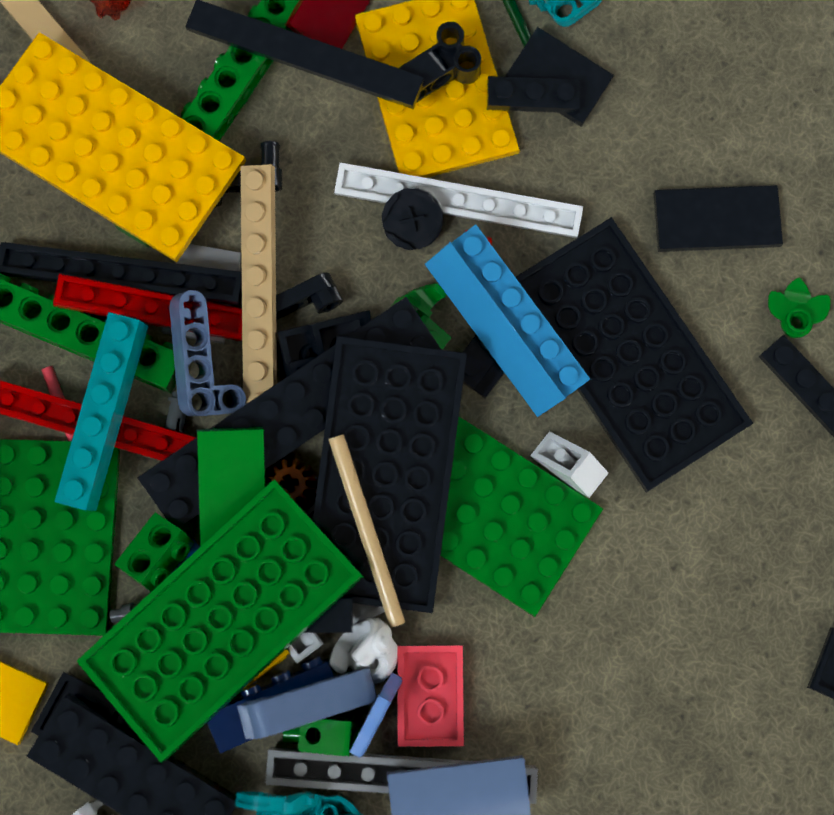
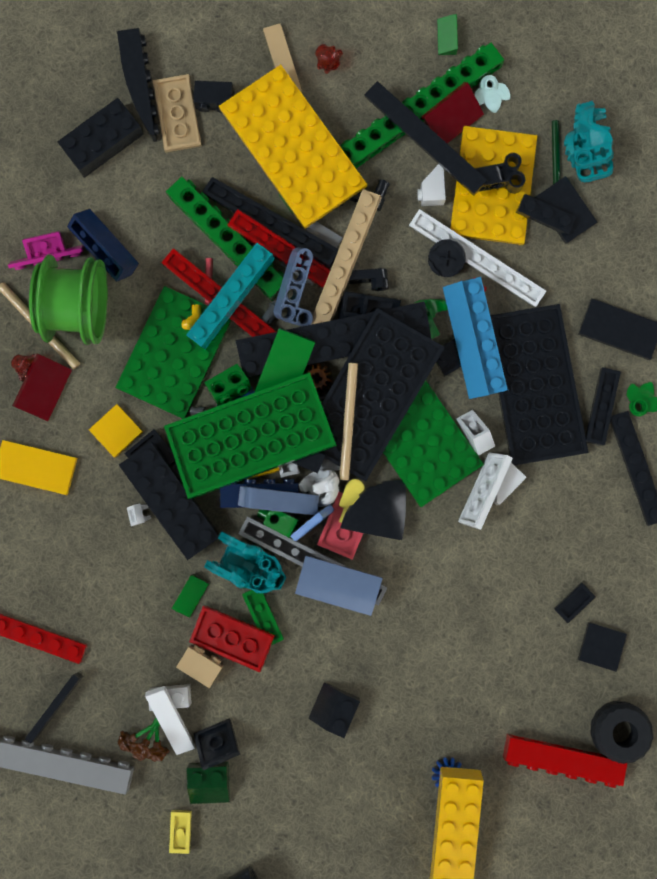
camera: 25 degrees right, 5 degrees up
(58, 459) = (190, 321): none -> yellow arm
(347, 124) = (432, 188): none -> white slope
(421, 650) = (350, 495): none -> light yellow piece
(473, 651) = (379, 511): none -> black brick
(623, 548) = (485, 490): none -> white tile
(648, 520) = (510, 482): none -> white slope
(743, 344) = (602, 406): none -> black plate

